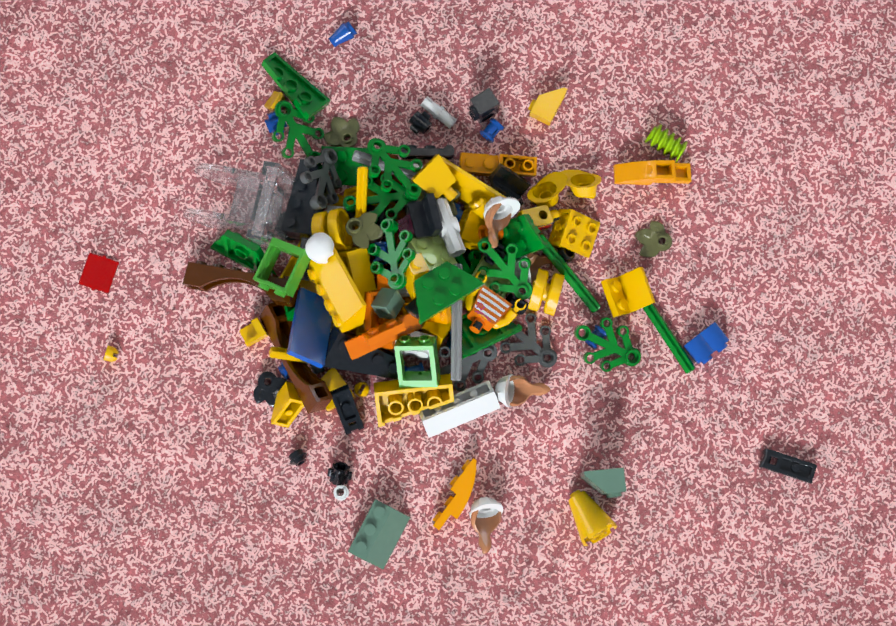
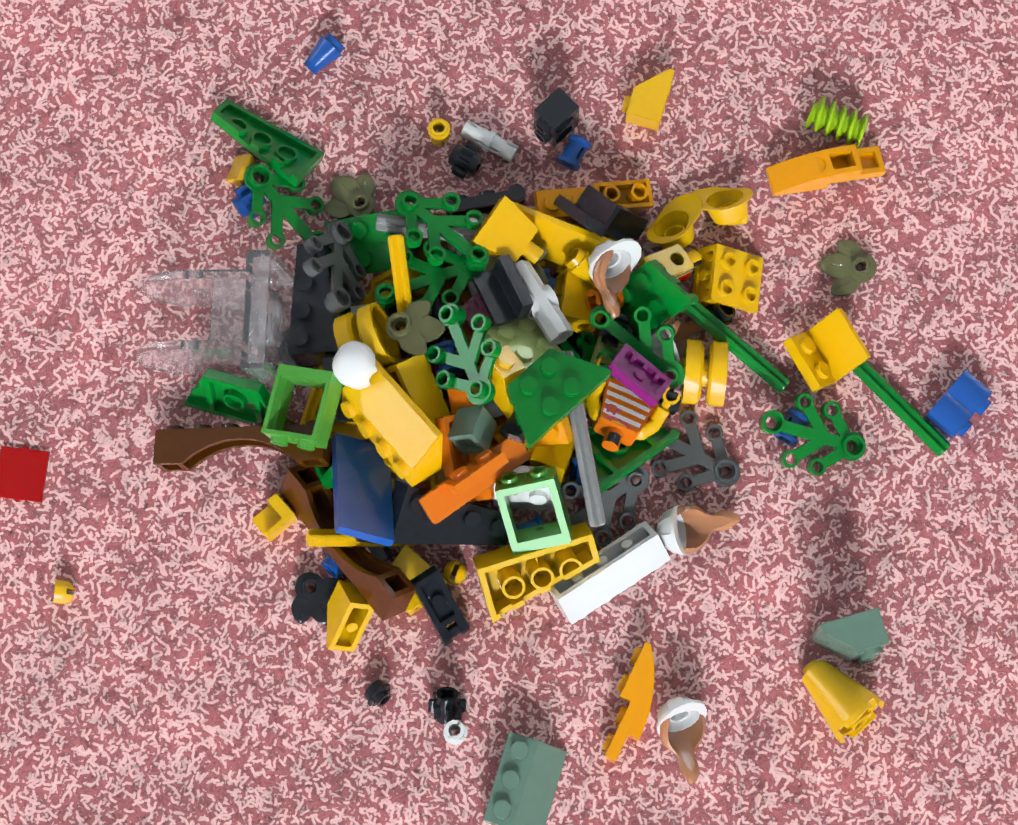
camera: 10 degrees left, 5 degrees down
(410, 97) = (443, 128): none -> yellow pin
(493, 173) = (591, 210): none -> black panel
(501, 288) = (639, 375): none -> magenta bracket

